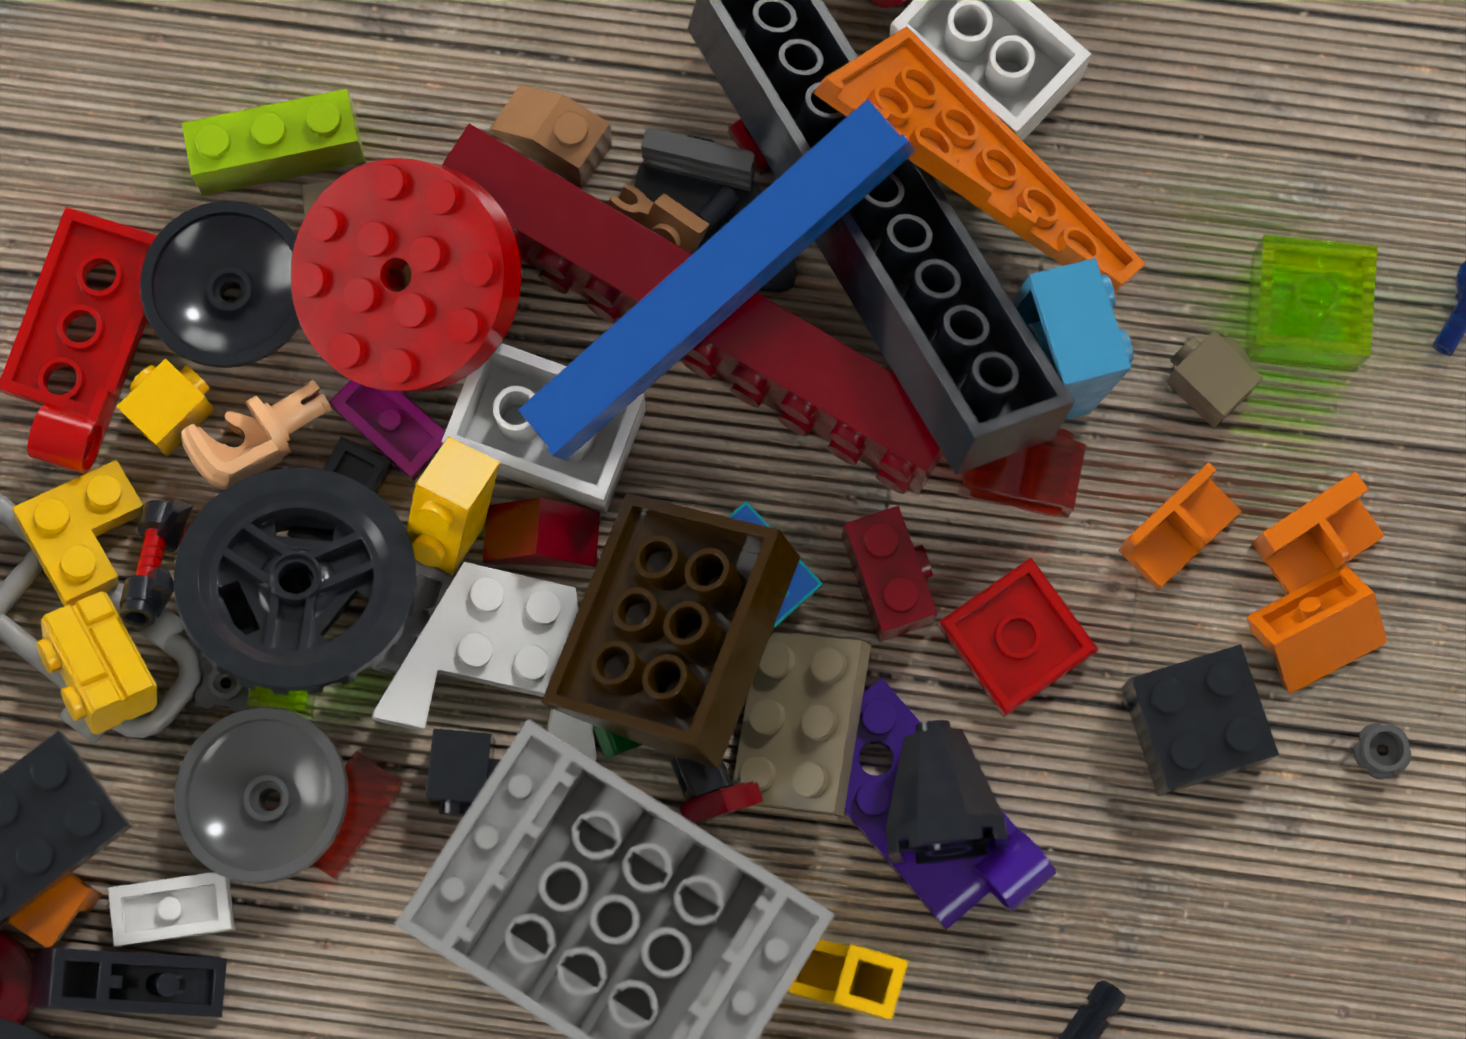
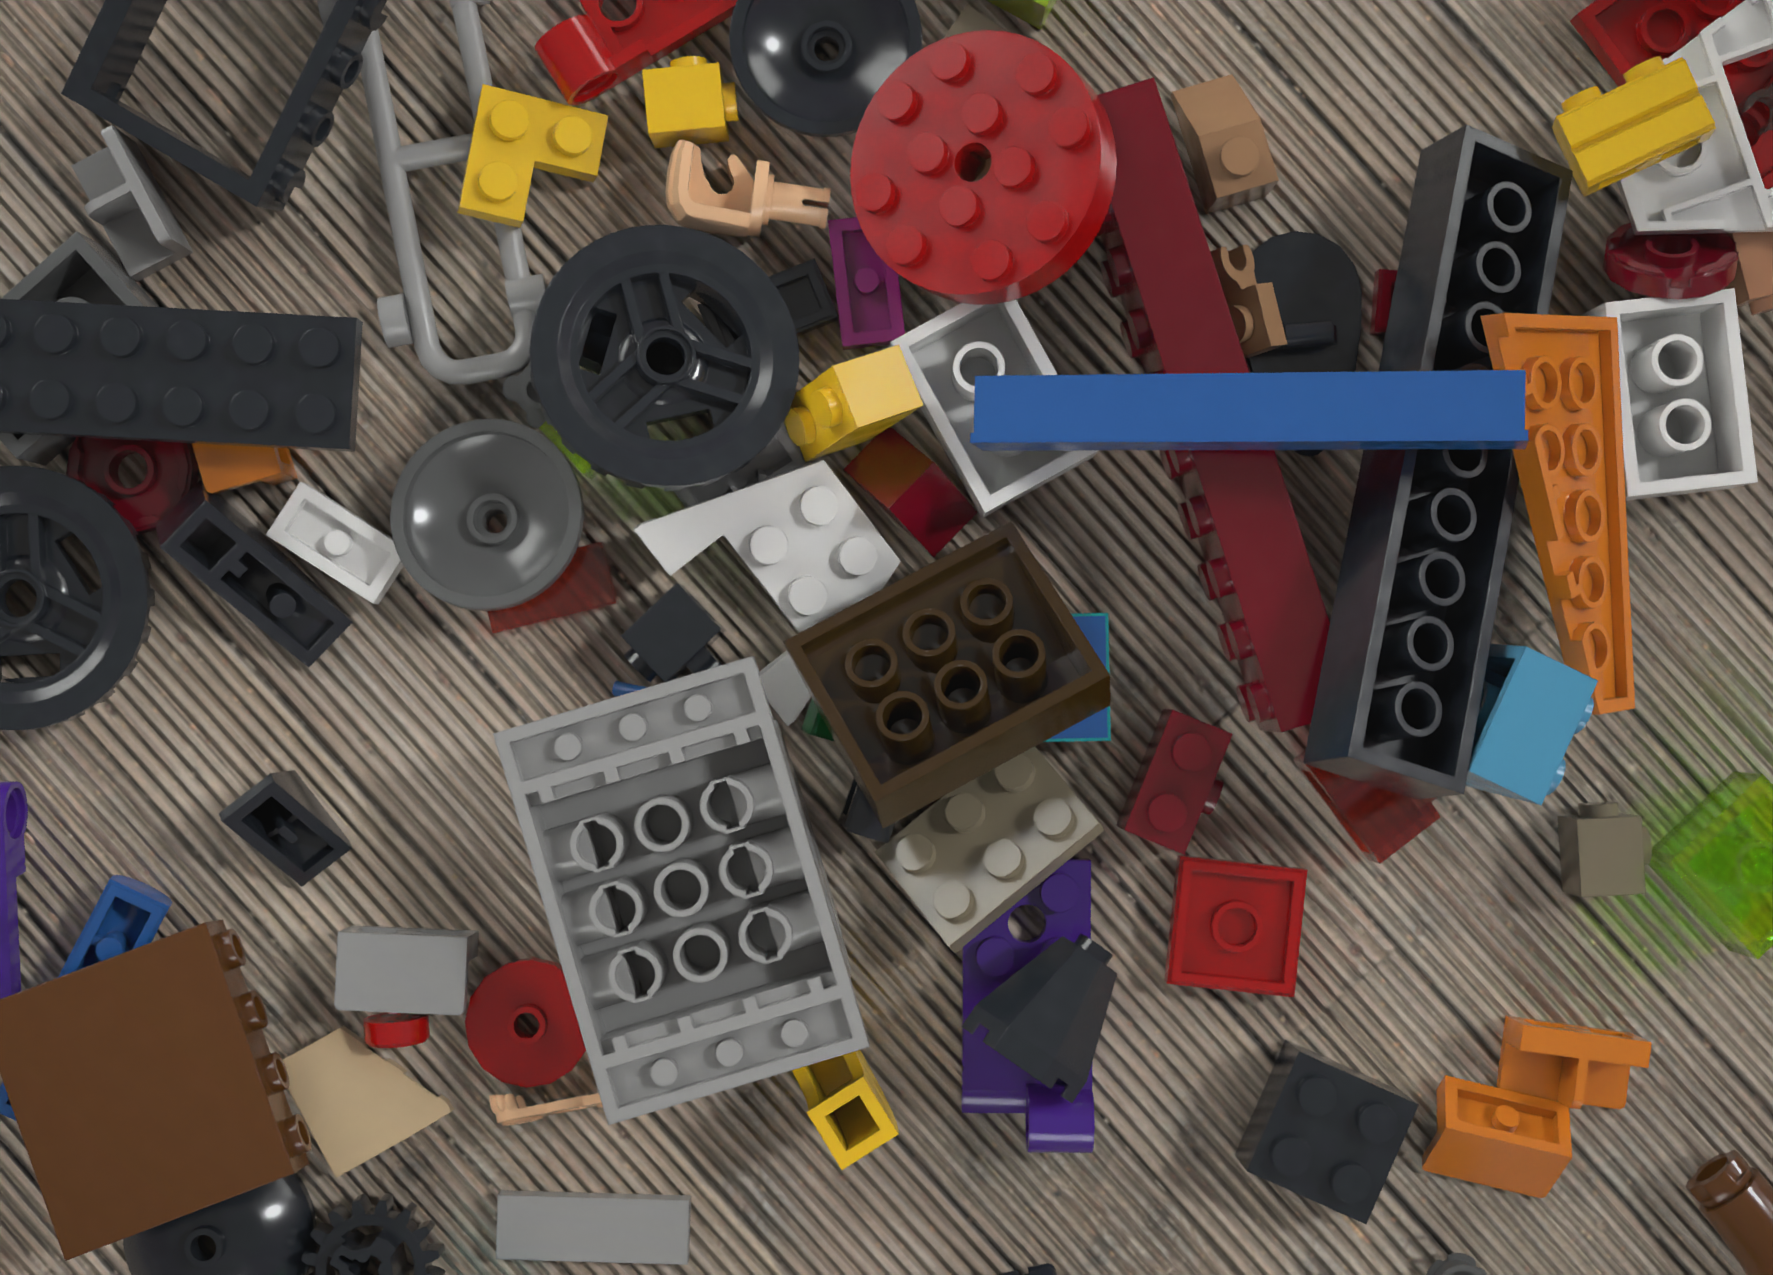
camera: 40 degrees right, 10 degrees up
(97, 663) = (442, 283): yellow brick -> none
(152, 586) = (538, 257): black piece -> none
(698, 159) = (1328, 276): dark grey tile -> none
(721, 802) = (862, 854): dark red tile -> none
(1179, 528) = (1456, 954): orange panel -> none

